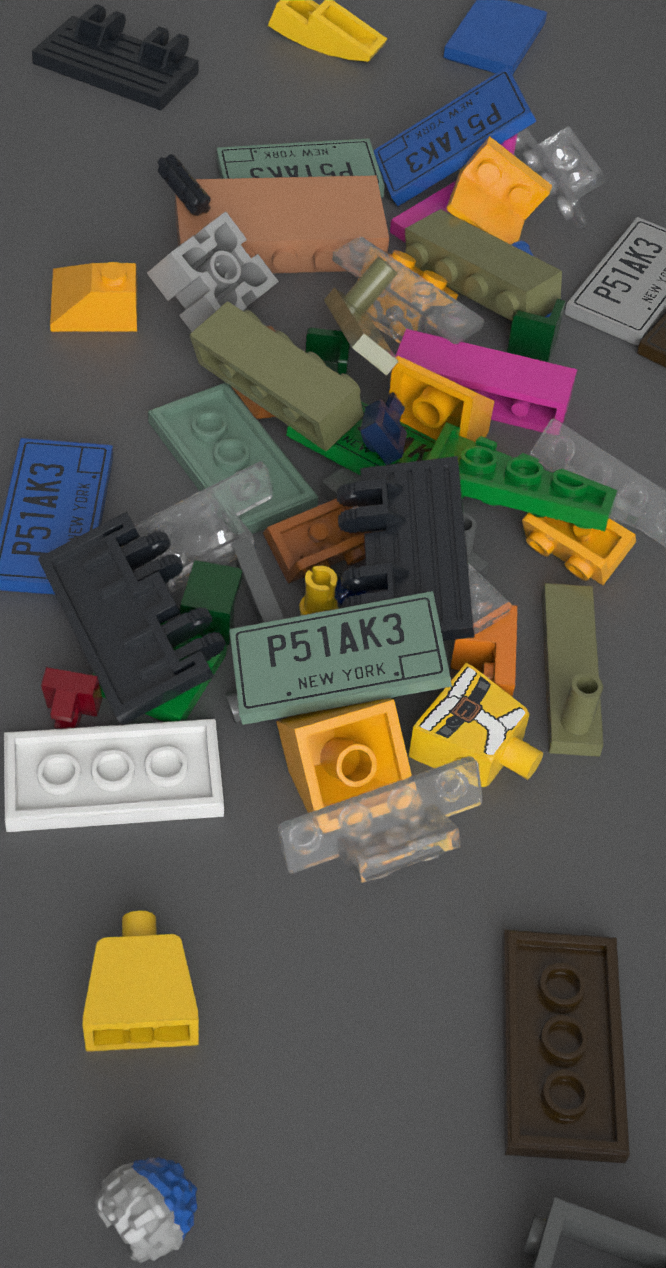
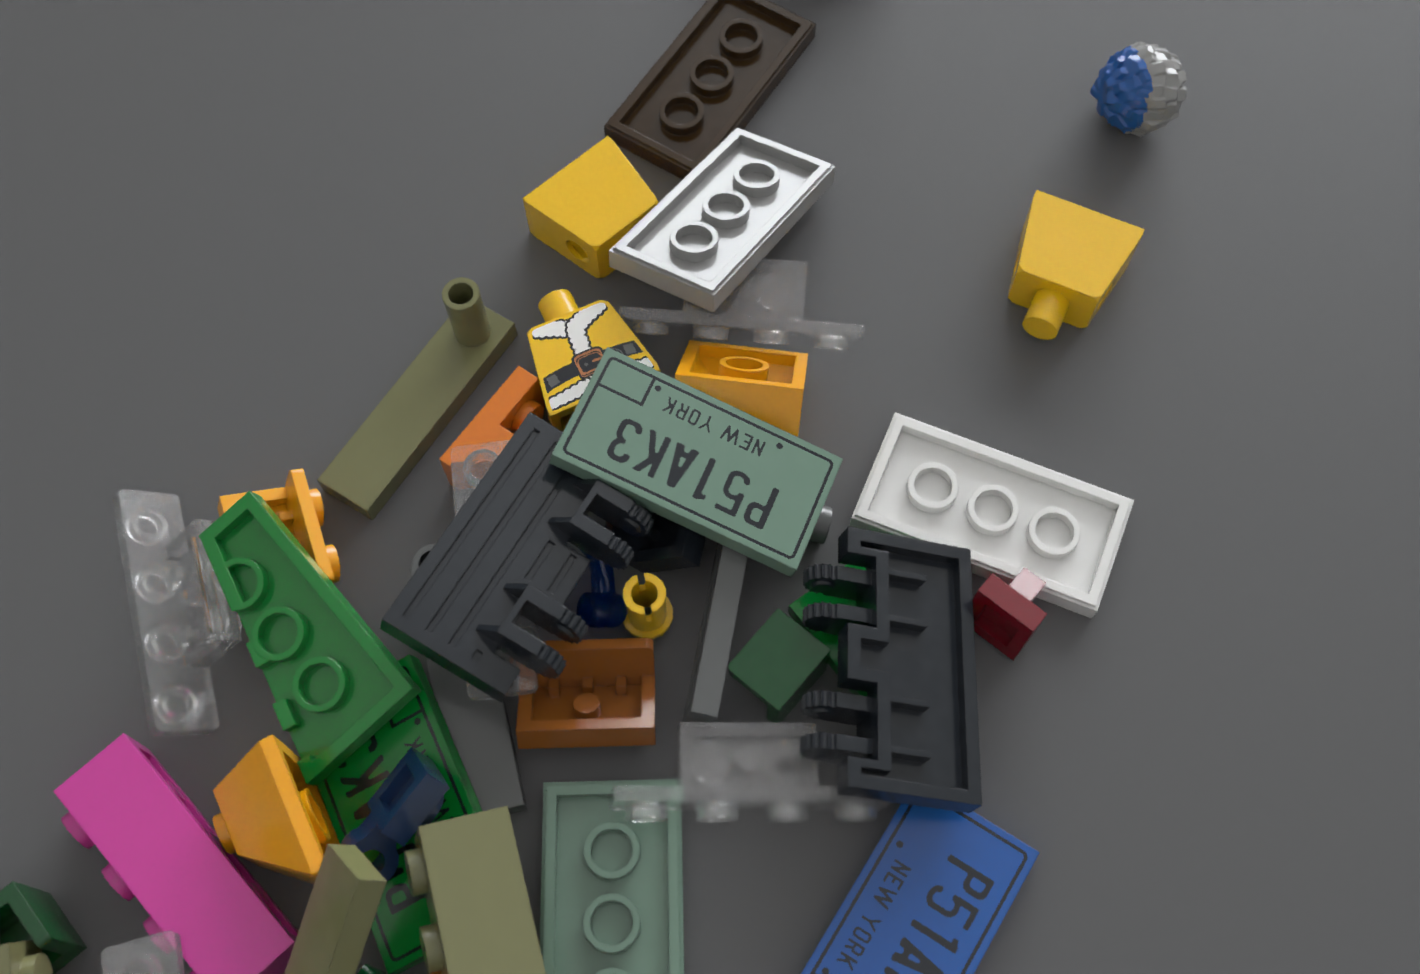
camera: 145 degrees left, 15 degrees up
(451, 881) = (722, 219): none -> light grey tile
(553, 849) = (589, 206): none -> yellow torso

